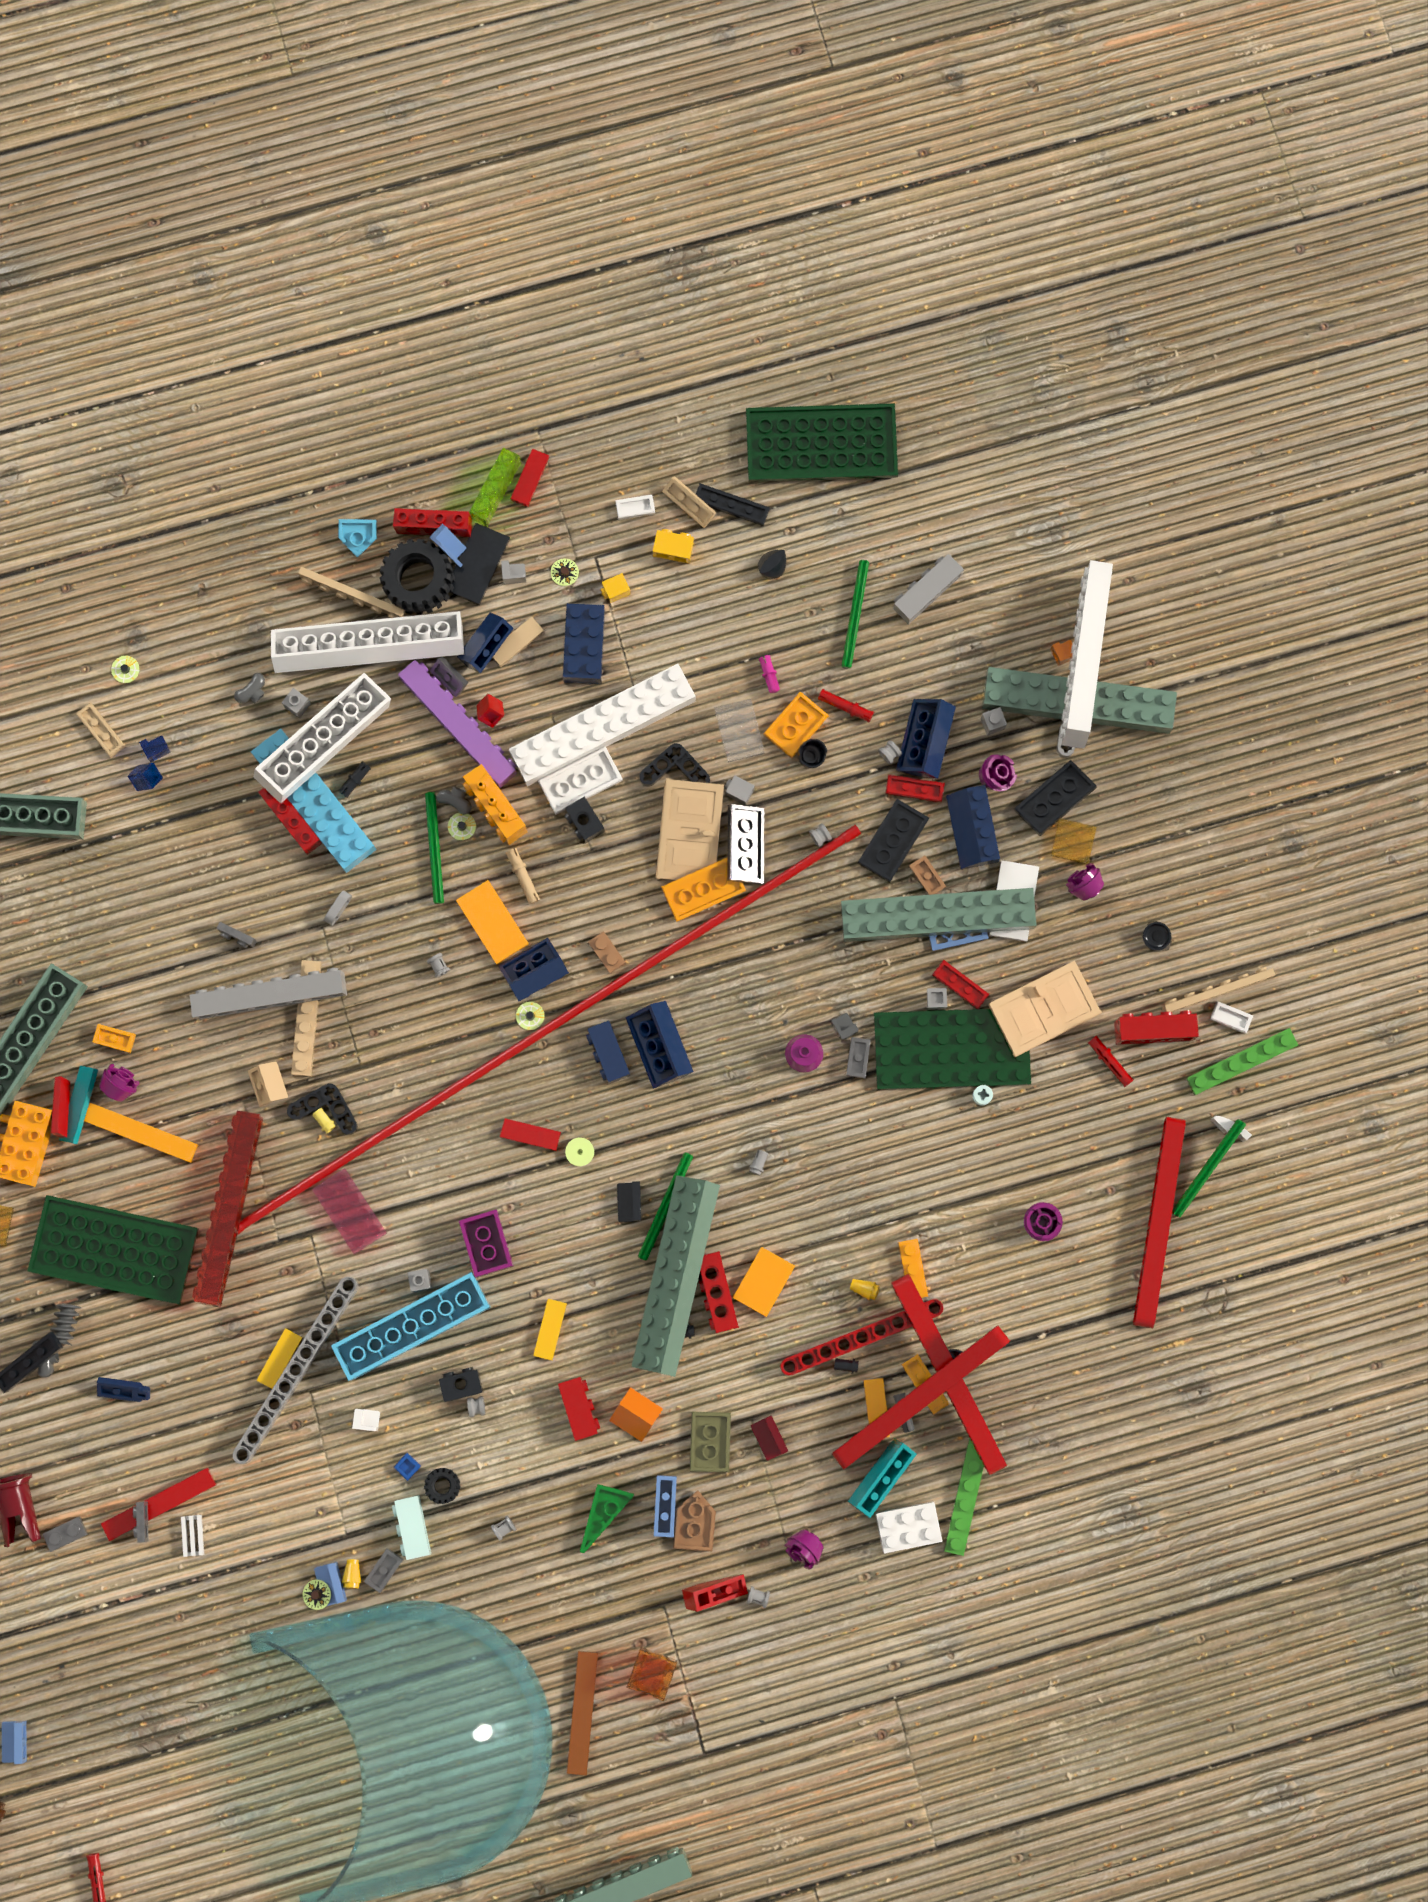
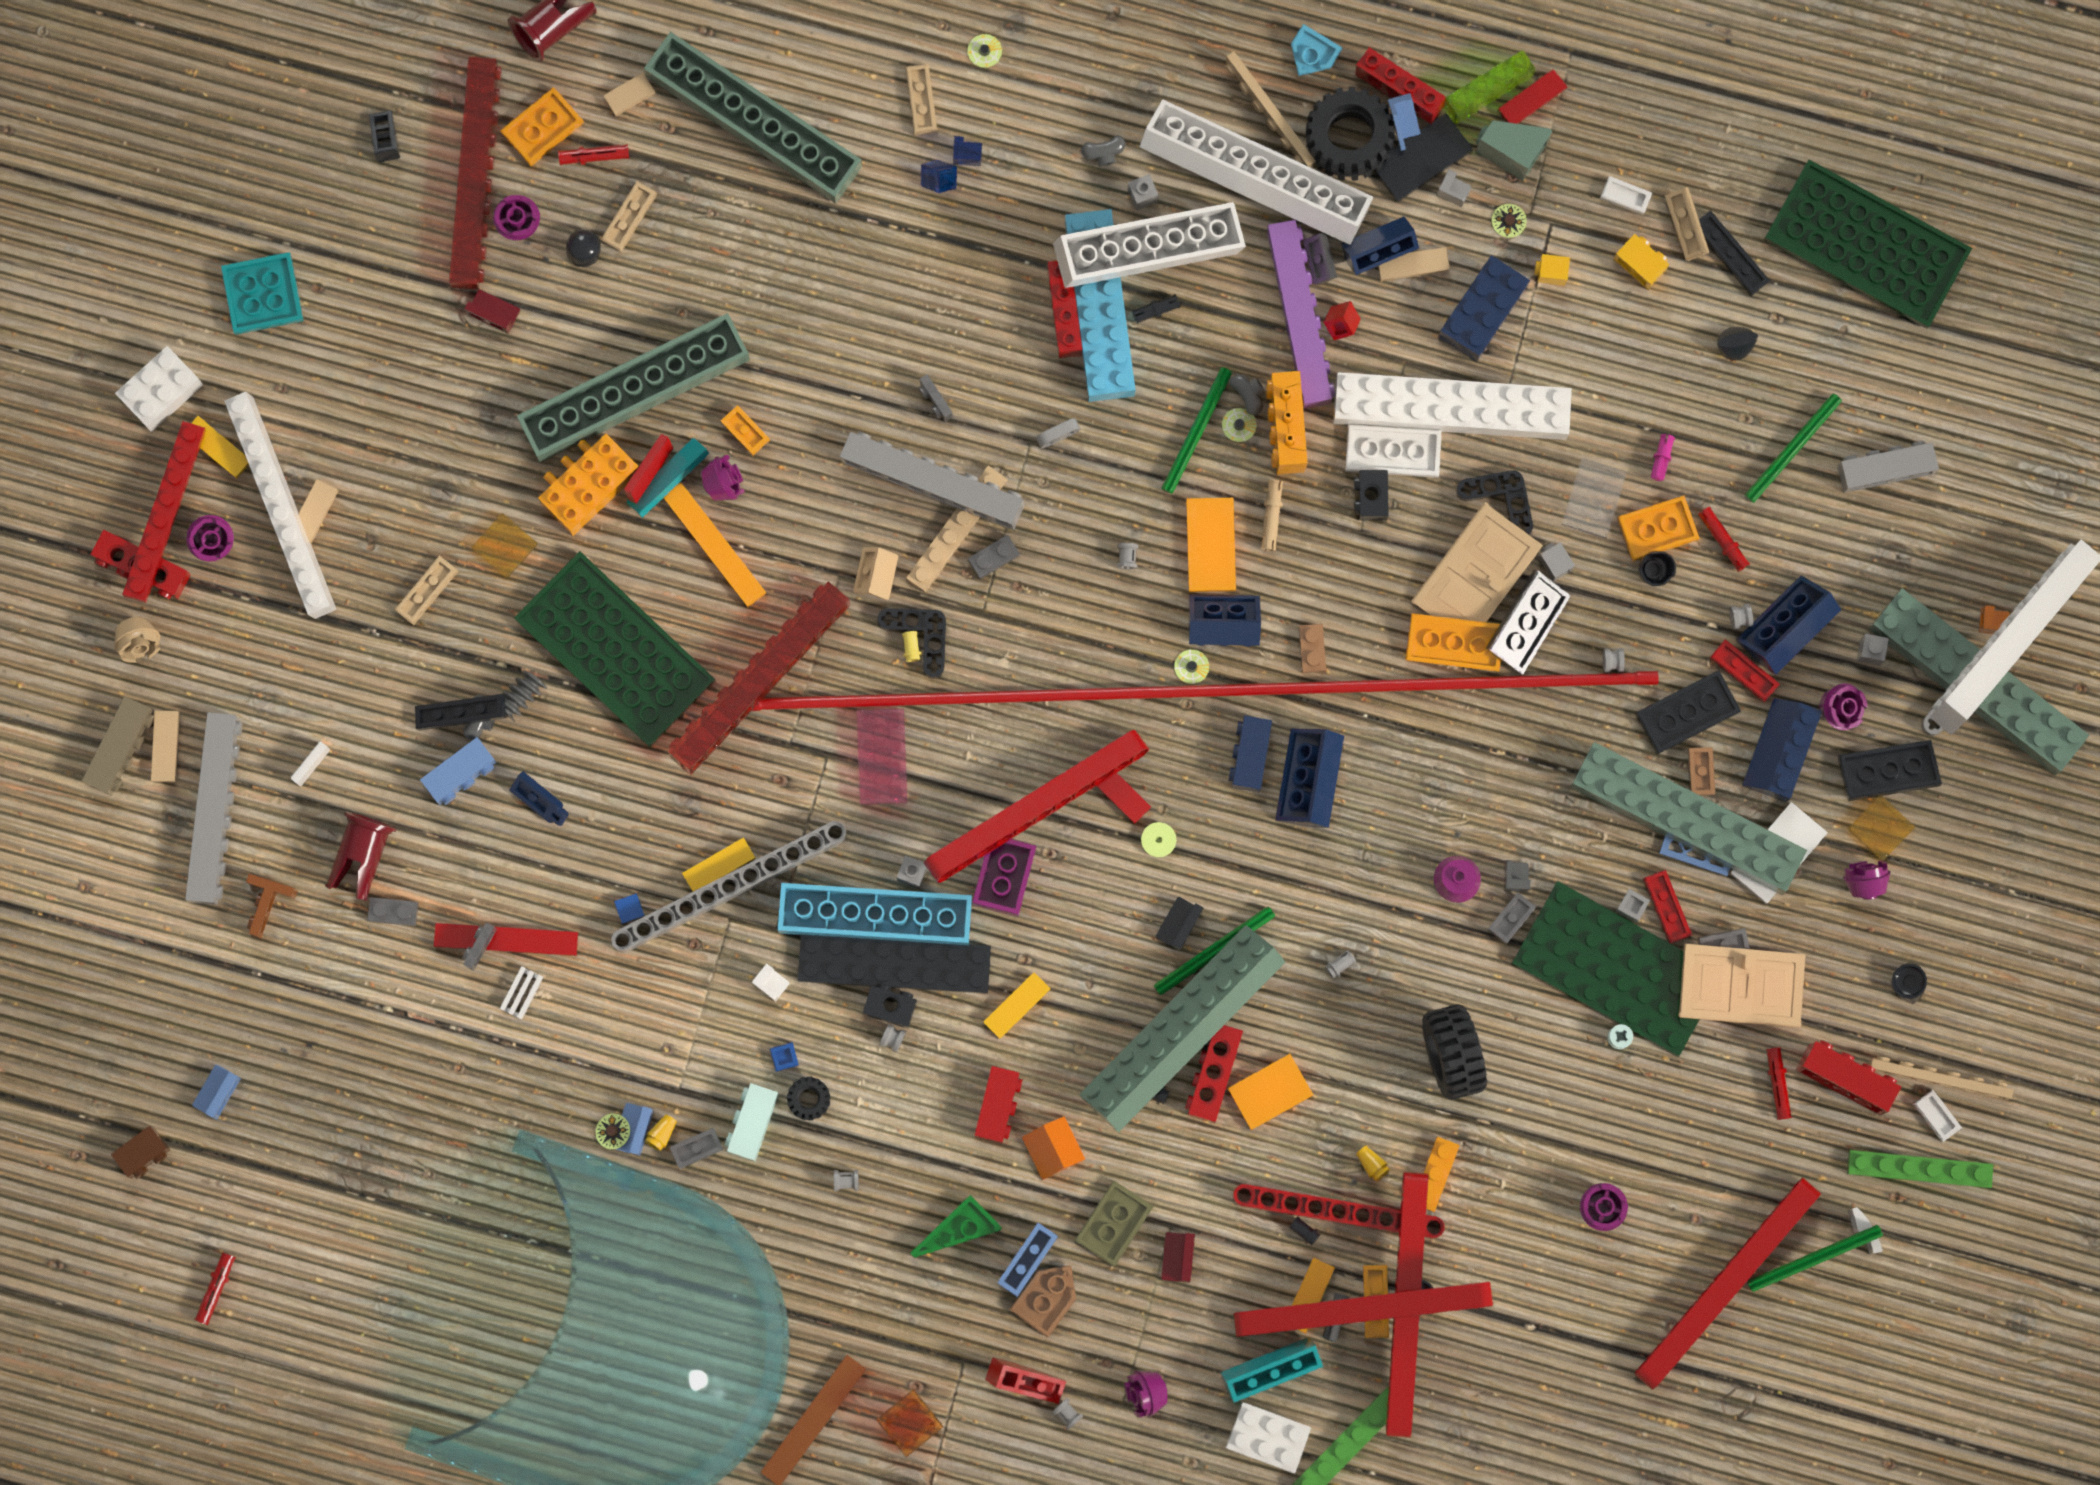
camera: 30 degrees right, 0 degrees up
(53, 1405) = (458, 772): none -> medium blue brick
(234, 1428) = (629, 908): none -> blue tile
(344, 1022) = (993, 557): none -> flat silver plate
(446, 1353) = (894, 964): none -> black plate
(479, 1182) = (1036, 806): none -> red beam
(536, 518) = (1512, 146): none -> sand green slope
(875, 1177) = (1454, 1051): none -> black tyre
(1017, 981) = (1732, 939): none -> flat silver plate

